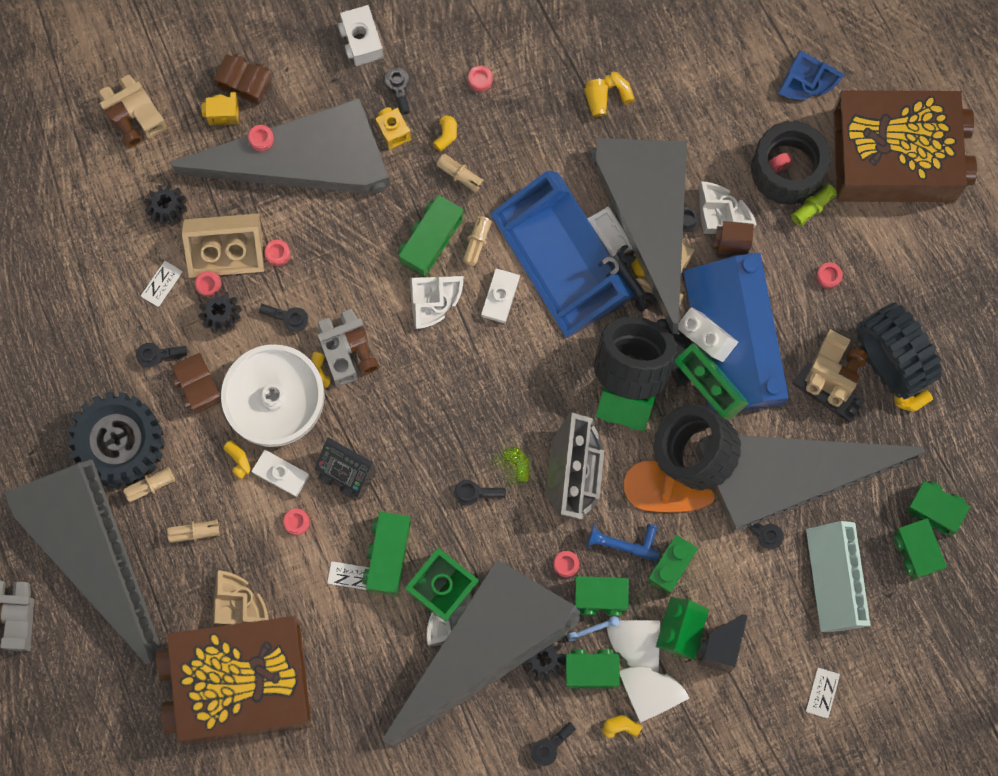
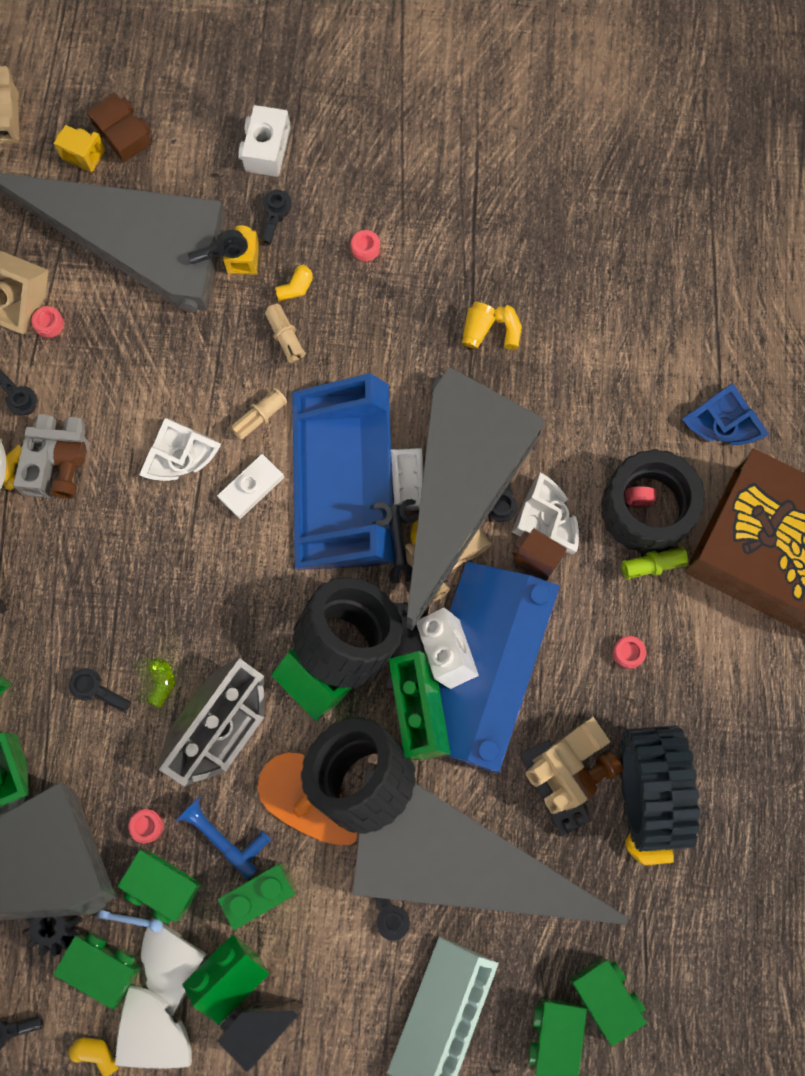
camera: 30 degrees right, 0 degrees up
(260, 138) = (93, 191): coral tile -> none
(389, 128) = (229, 244): none -> black plate
(430, 236) = (213, 383): green brick -> none

